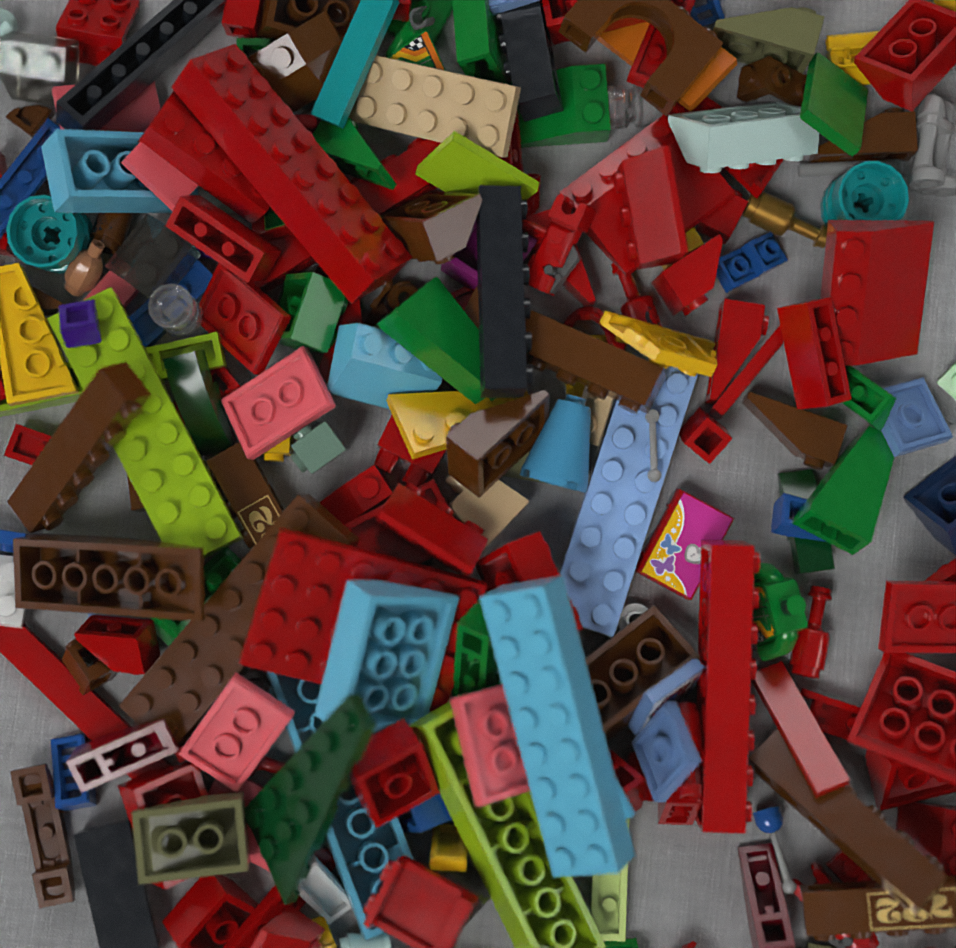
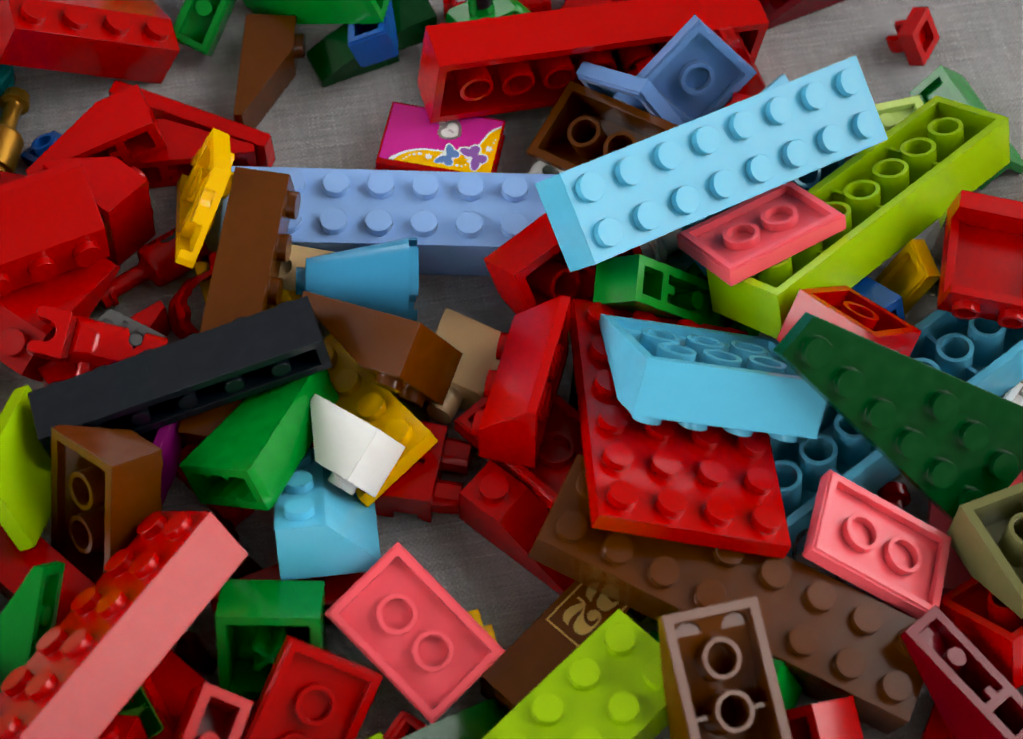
camera: 110 degrees left, 25 degrees down
(316, 447) = (464, 563): sand green brick -> none
(421, 395) = (351, 448): none -> white slope
(652, 417) = (368, 171): light grey hinge -> none
(704, 435) = (302, 143): red brick -> none
(744, 289) = (112, 127): none -> red slope
(814, 353) = (170, 50): red brick -> none

